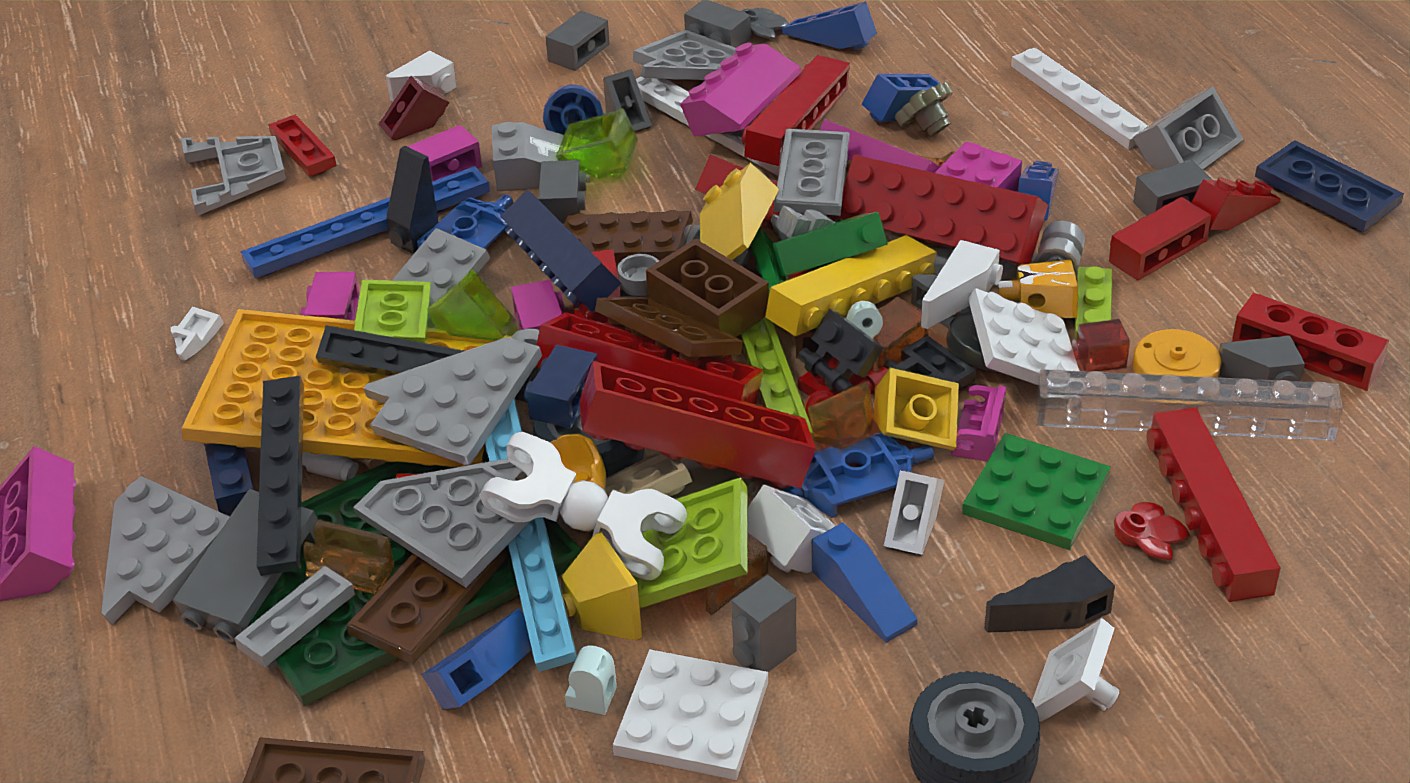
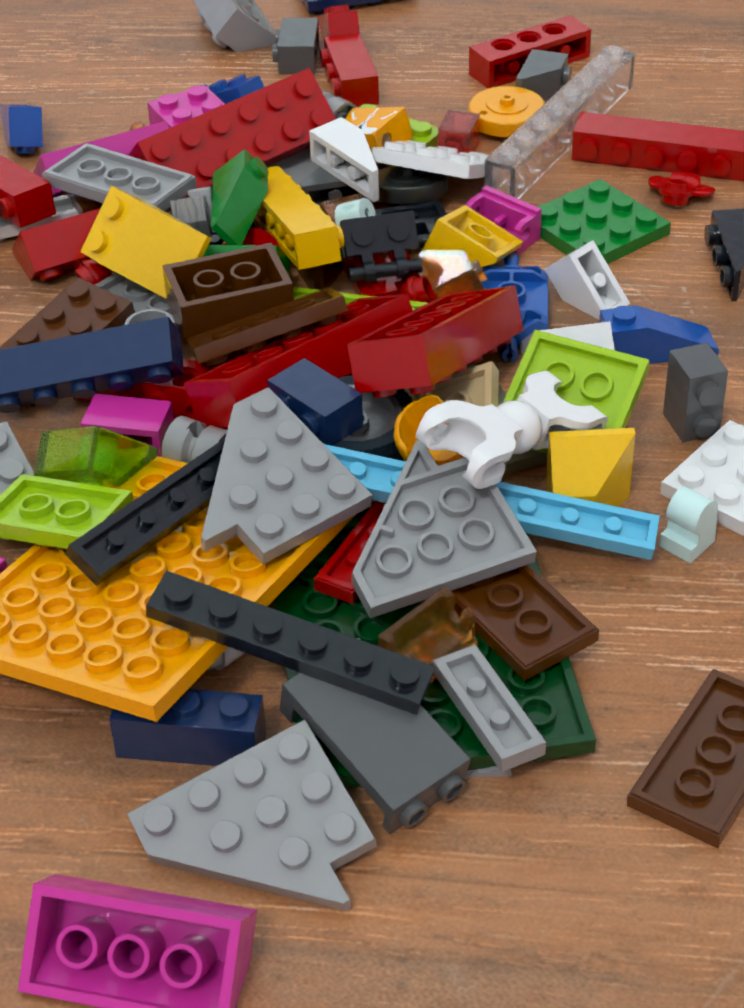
camera: 65 degrees left, 0 degrees up
(479, 662) = (635, 600): blue slope -> none
(927, 109) = (64, 113): olive plant -> none
(1079, 96) = (117, 49): white plate -> none

